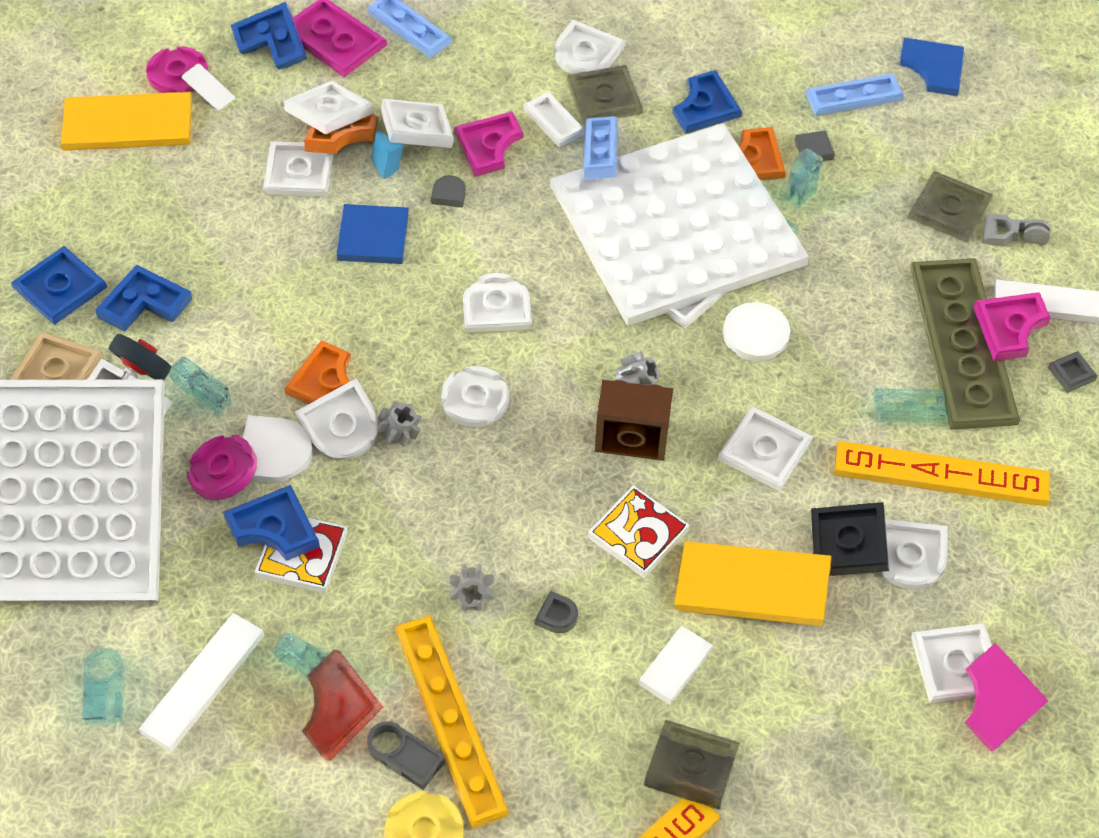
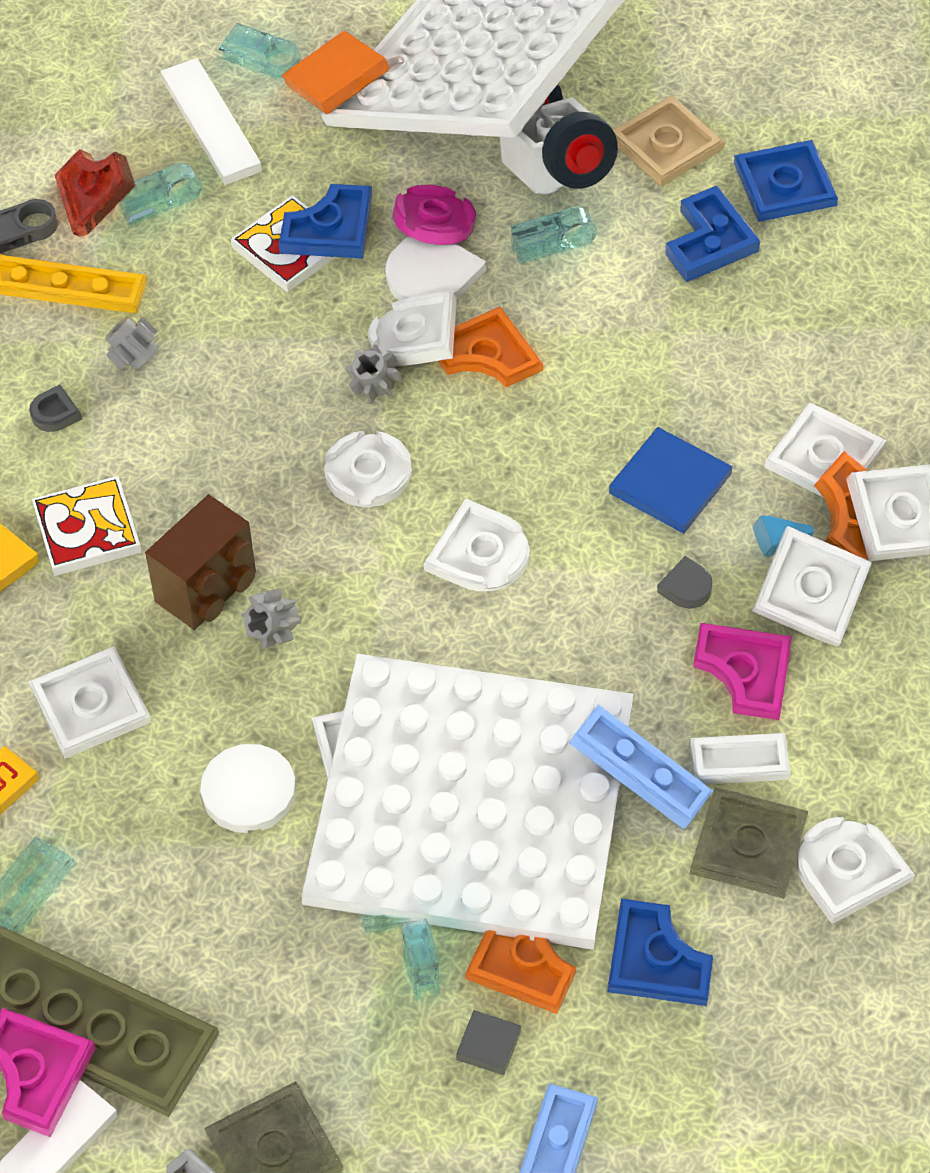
camera: 125 degrees right, 0 degrees up
(107, 606) = (335, 72): none -> orange tile

